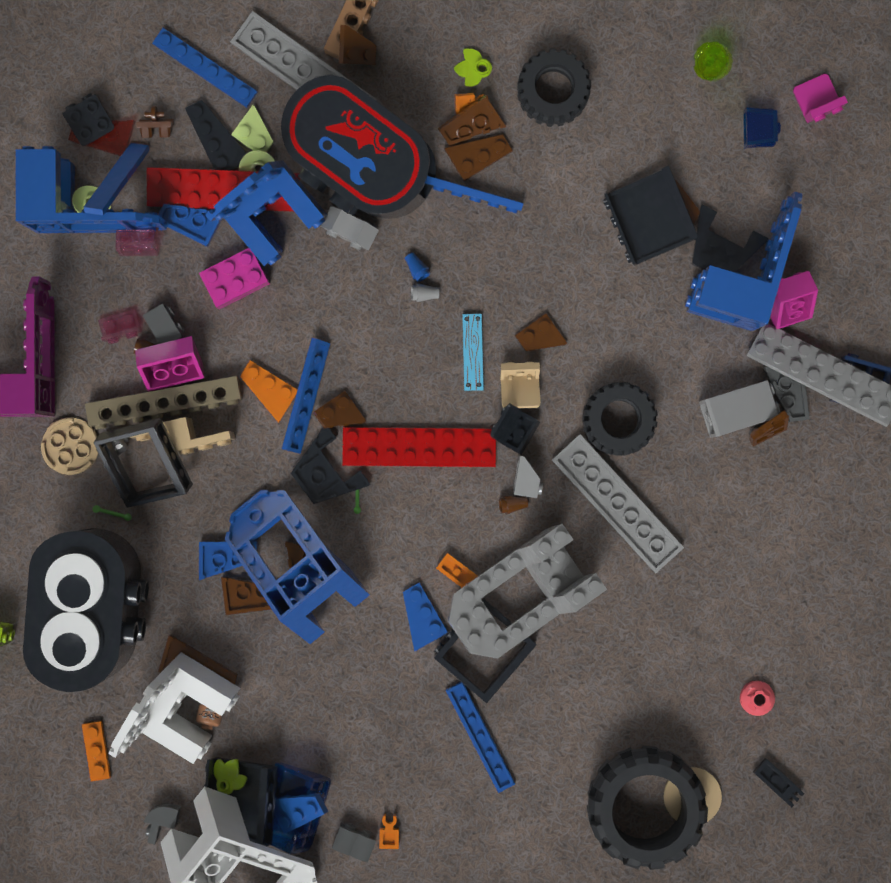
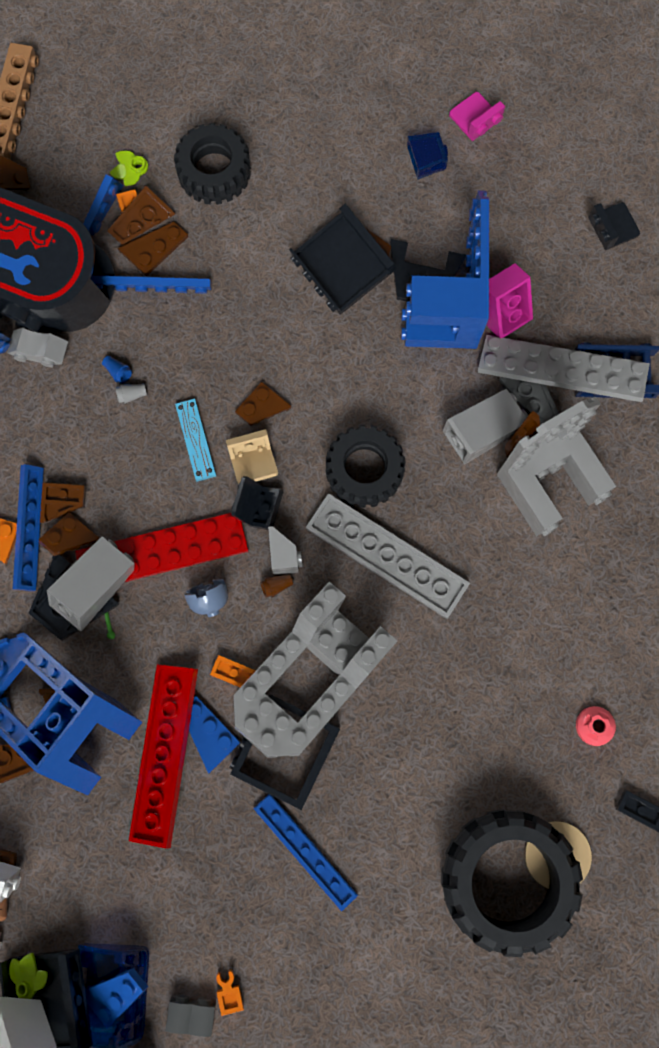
camera: 20 degrees left, 10 degrees down
(340, 377) = (60, 500): none -> reddish brown wing
(352, 462) = (90, 583): none -> light grey slope
(380, 626) = (163, 756): none -> red plate
(439, 103) = (102, 203): none -> blue wing
(450, 501) = (207, 598): none -> sand blue cylinder
(712, 61) = (363, 102): clear neon green cylinder -> none
(799, 451) = (555, 446): none -> light grey bracket

